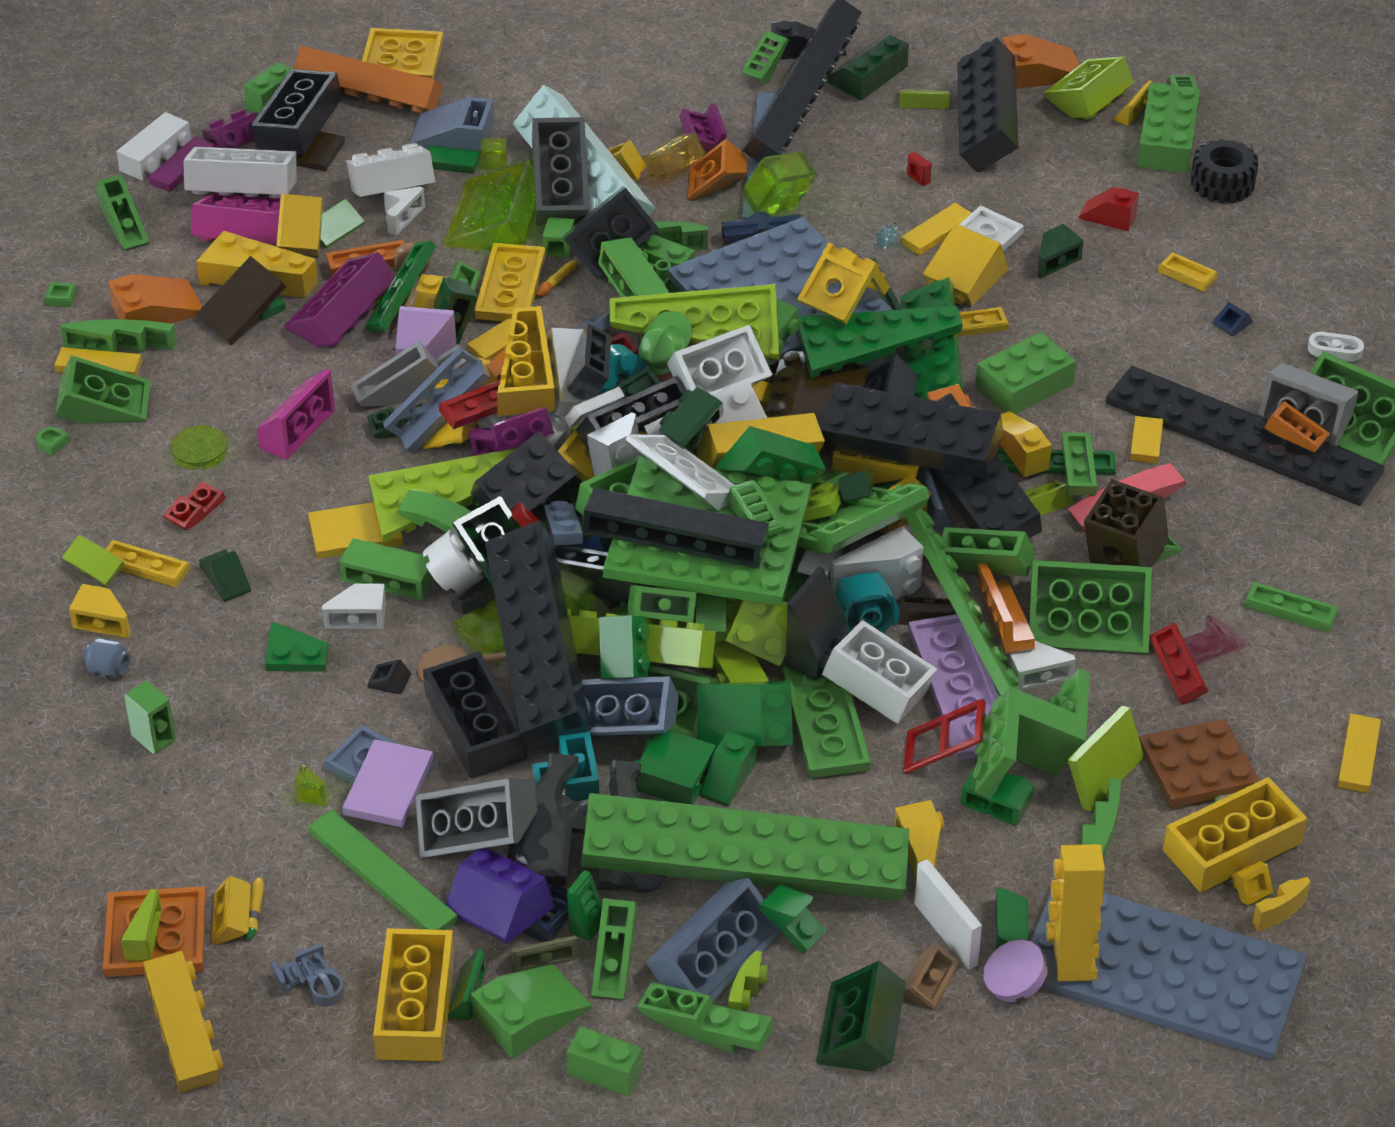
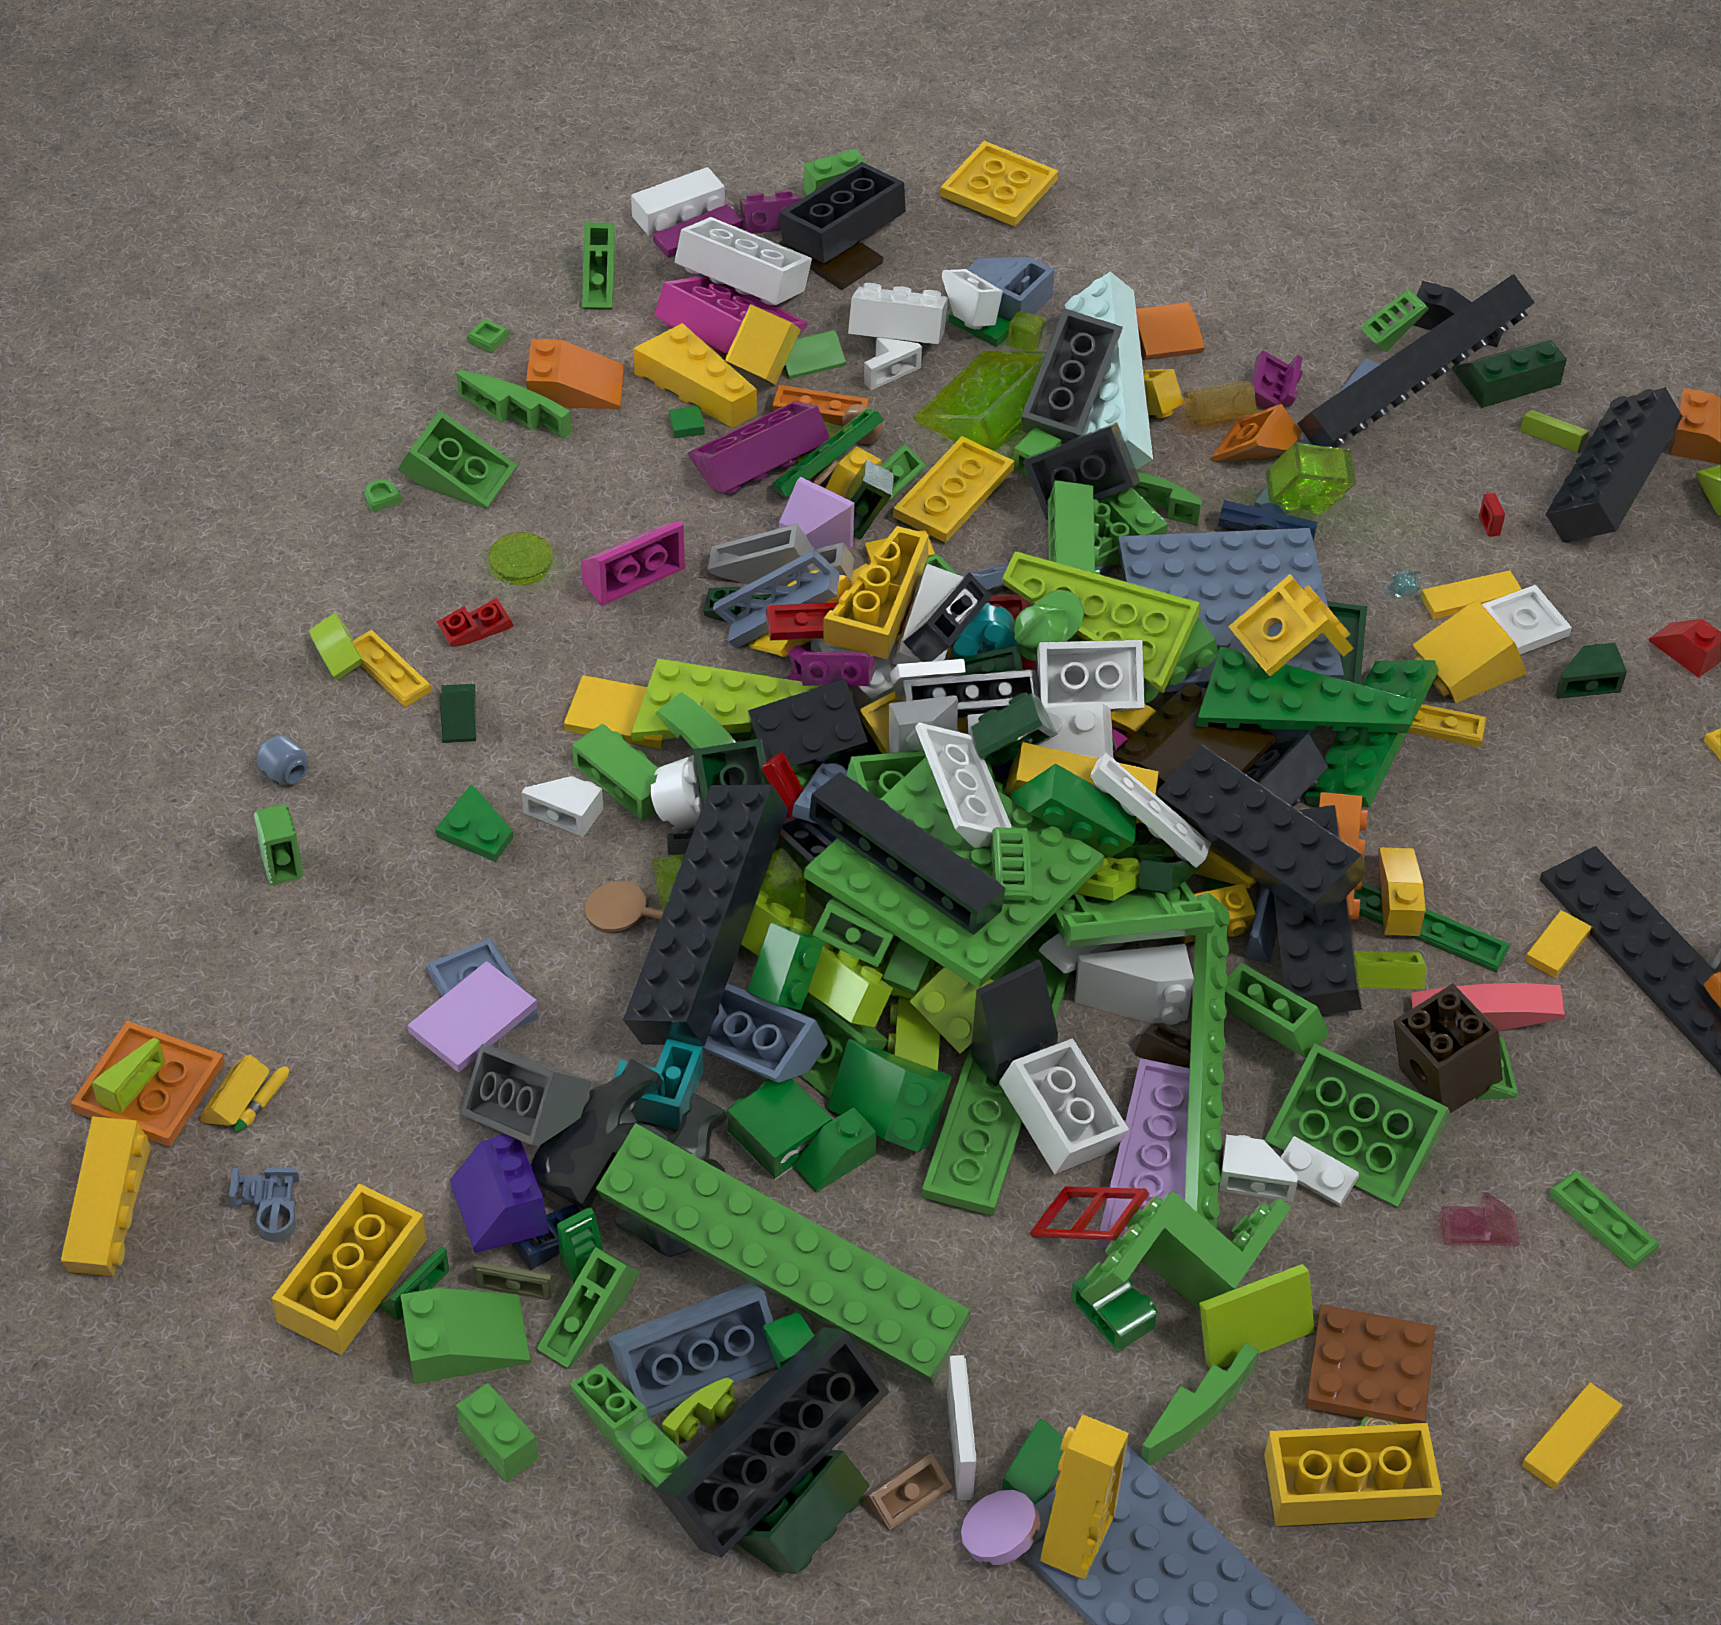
camera: 25 degrees right, 5 degrees up
(99, 612) = (306, 704): yellow slope -> none
(121, 361) = (490, 429): yellow tile -> none
(241, 300) = (655, 408): dark brown tile -> none
(310, 787) = (392, 988): clear neon green slope -> none
(374, 80) = (945, 202): orange brick -> none
(382, 873) = (410, 1117): bright green tile -> none
(390, 677) = (554, 896): black slope -> none
(443, 141) = (972, 298): none -> white slope
(474, 714) = (603, 973): black brick -> none
(546, 287) = (991, 507): yellow piece -> none
(605, 117) = (1169, 331): none -> orange slope
(818, 437) = (1152, 811): none -> white plate
(821, 977) = (772, 1441): none -> black brick
(867, 599) = (1100, 1019): teal brick -> none
(924, 831) = (996, 1324): yellow slope -> none
(1004, 612) = (1252, 1092): orange fence -> none
(1025, 373) = (1460, 810): bright green brick -> none
(1079, 464) = (1451, 944): bright green plate -> none
(1088, 650) = (1320, 1171): none -> white plate
(1178, 663) = (1422, 1235): red tile -> none
(1253, 883) = (1341, 1542): yellow tile -> none
(1289, 899) = (1373, 1580): yellow slope -> none

